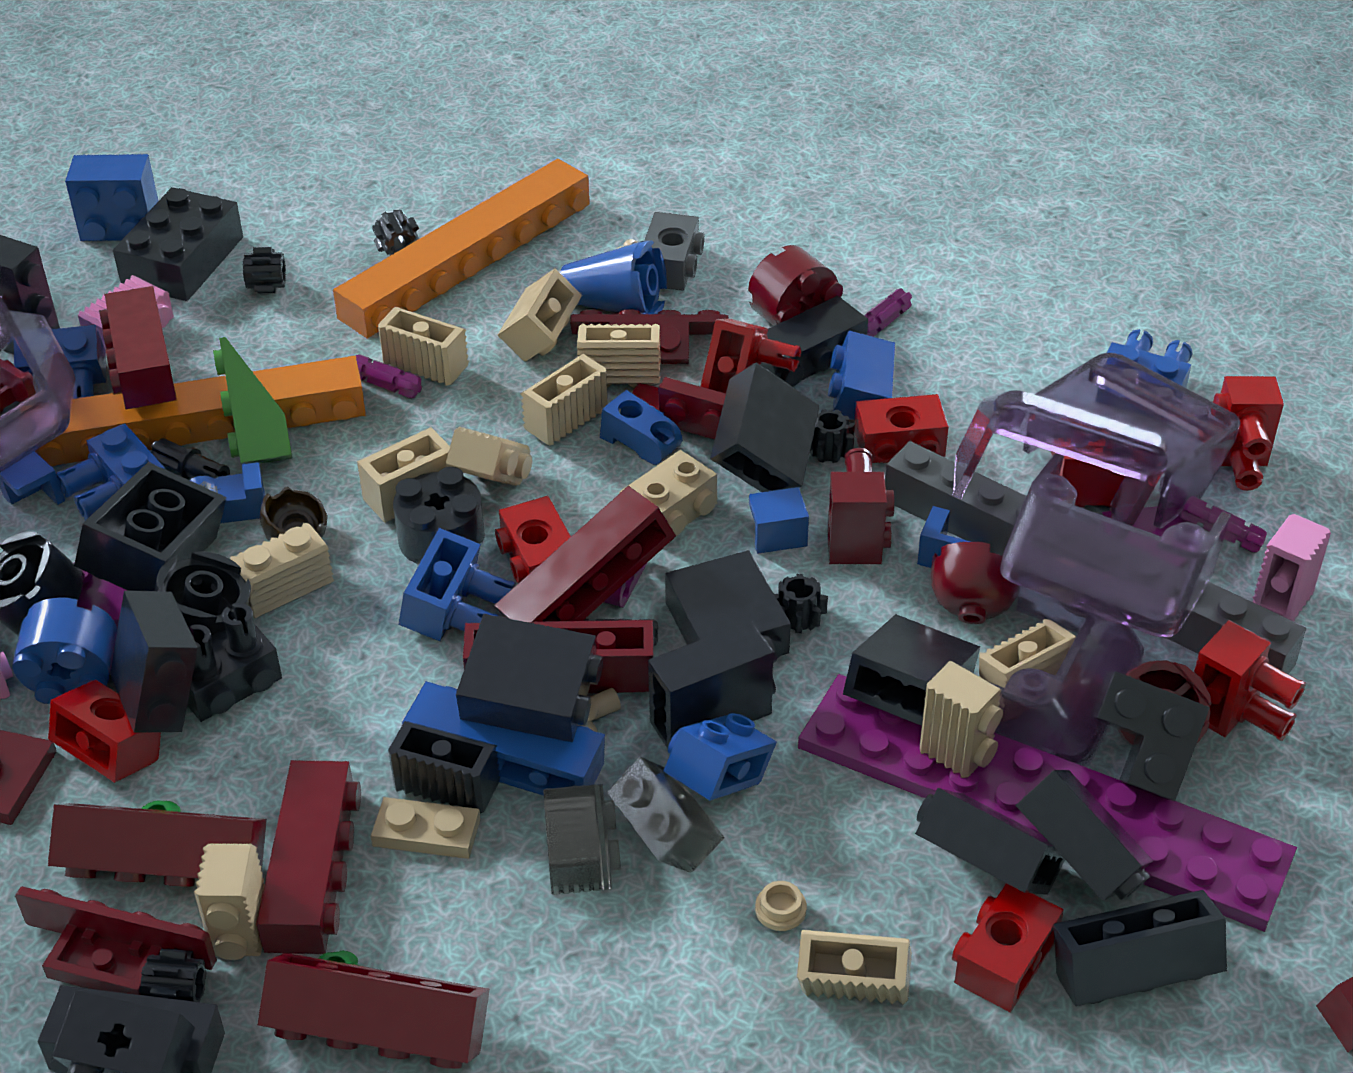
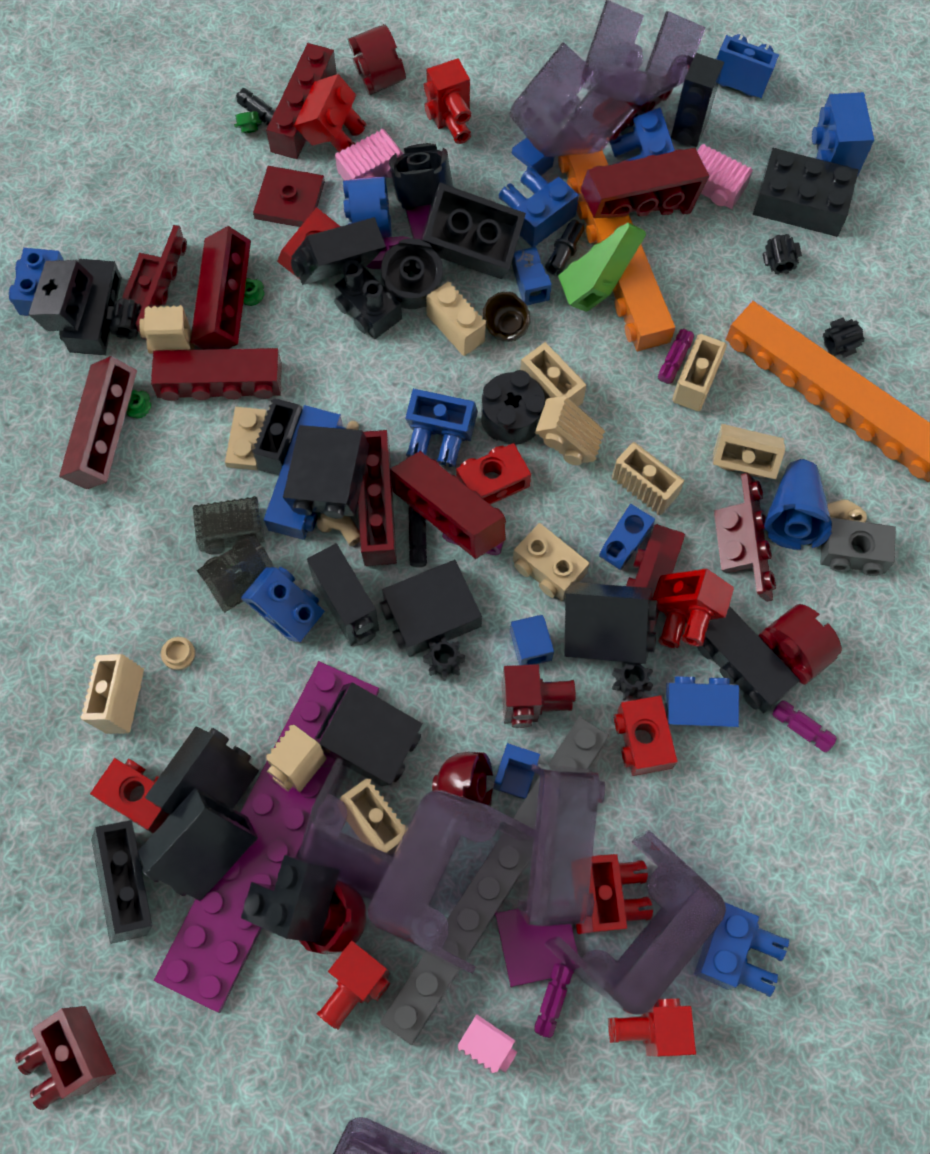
camera: 85 degrees right, 25 degrees up
(625, 351) = (703, 512): tan brick -> none

